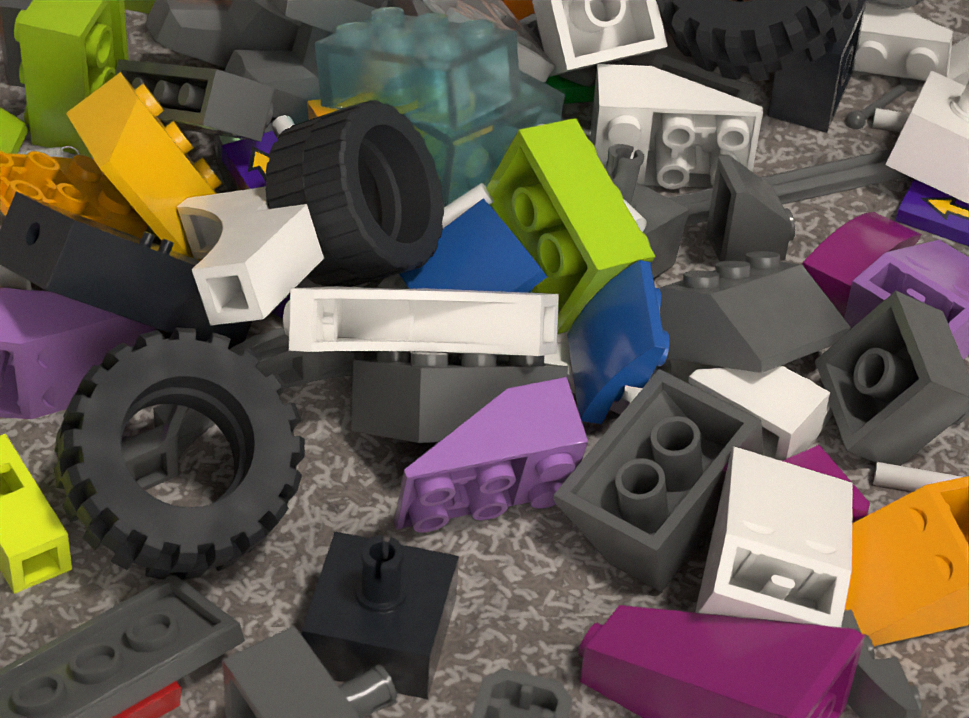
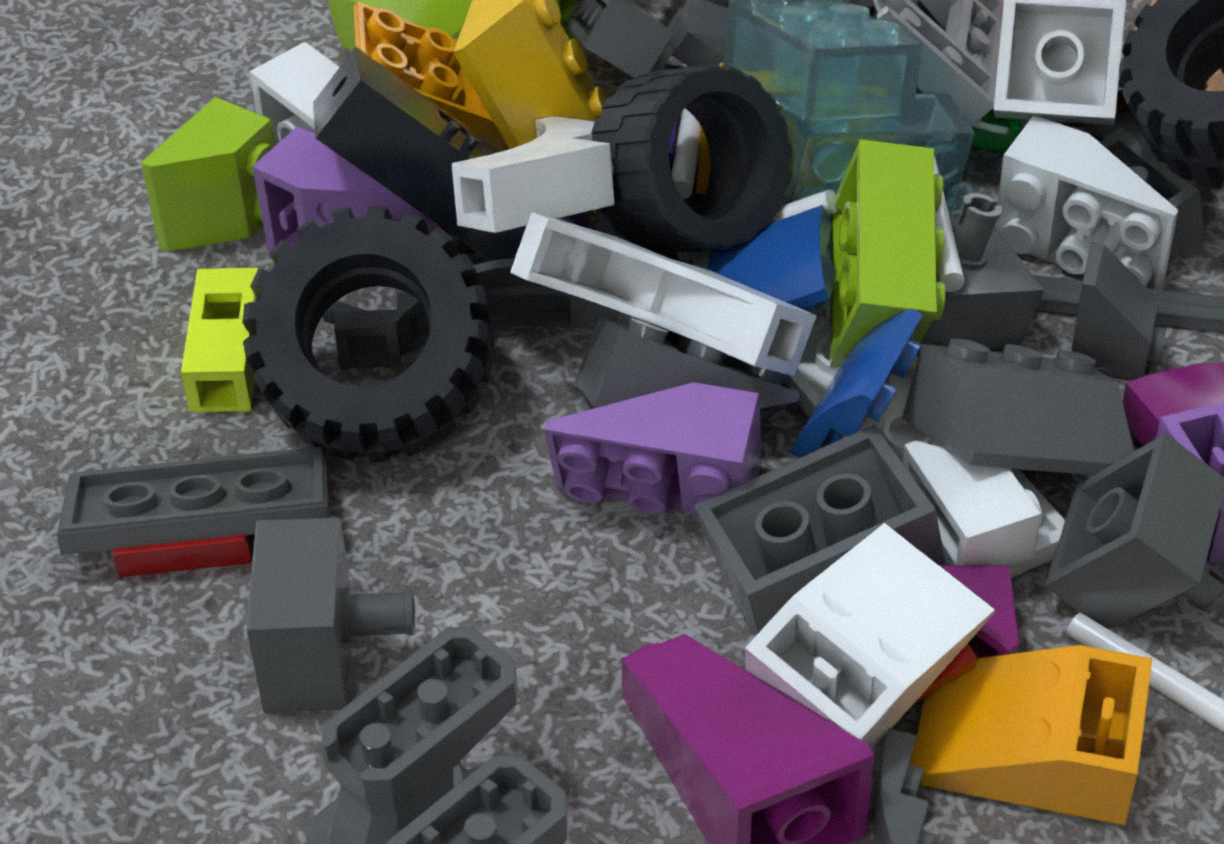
camera: 35 degrees right, 0 degrees up
(383, 609) = (468, 550): black brick -> none

